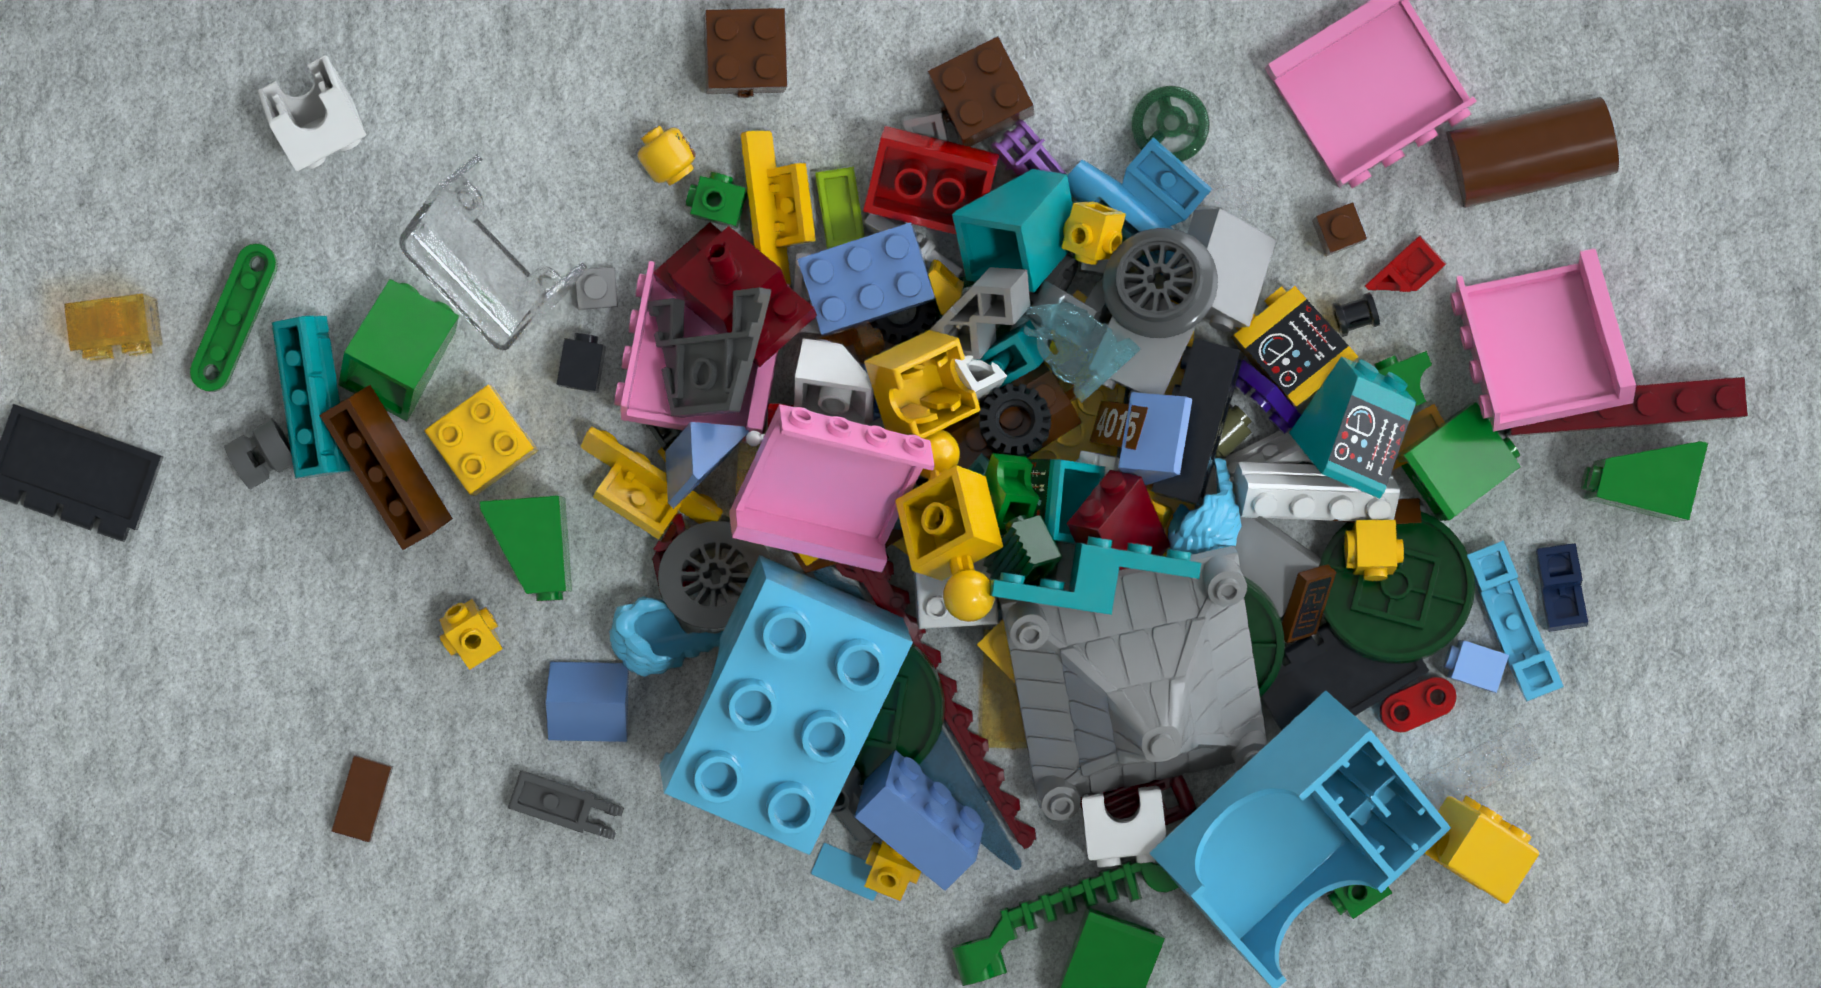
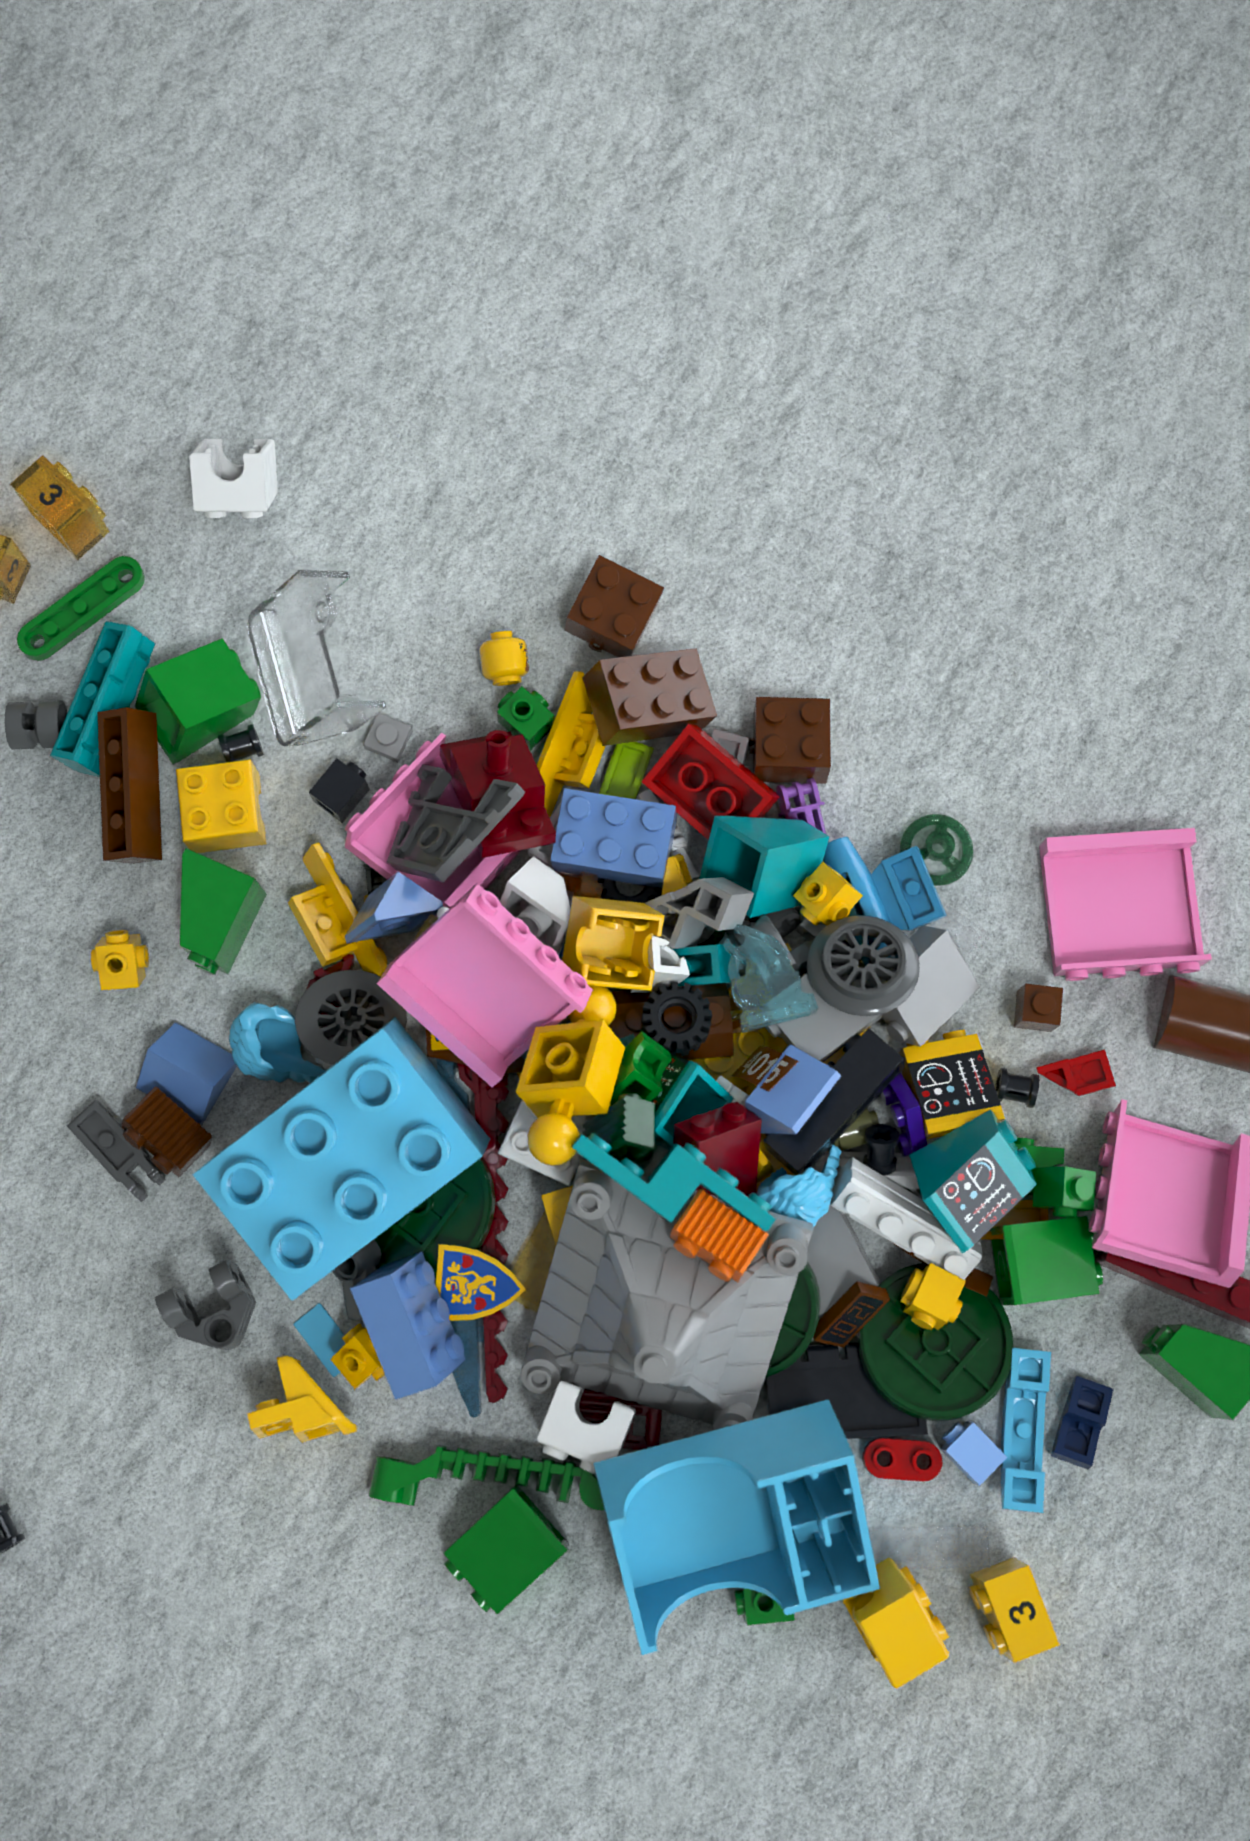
camera: 25 degrees right, 10 degrees down
(160, 232) = (61, 506): none -> clear yellow brick
(463, 370) = (241, 744): none -> black bush
(602, 766) = (165, 1132): none -> reddish brown brick
(745, 873) = (232, 1287): none -> dark grey piece
(827, 123) = (648, 696): none -> brick
(869, 940) = (306, 1410): none -> yellow piece
(956, 752) = (474, 1283): none -> sticker
(1158, 604) = (717, 1237): none -> orange brick
(1258, 434) = (881, 1148): none -> black bush
(1444, 391) = (1064, 1190): none -> green brick
(1577, 783) = (1014, 1610): none -> yellow brick

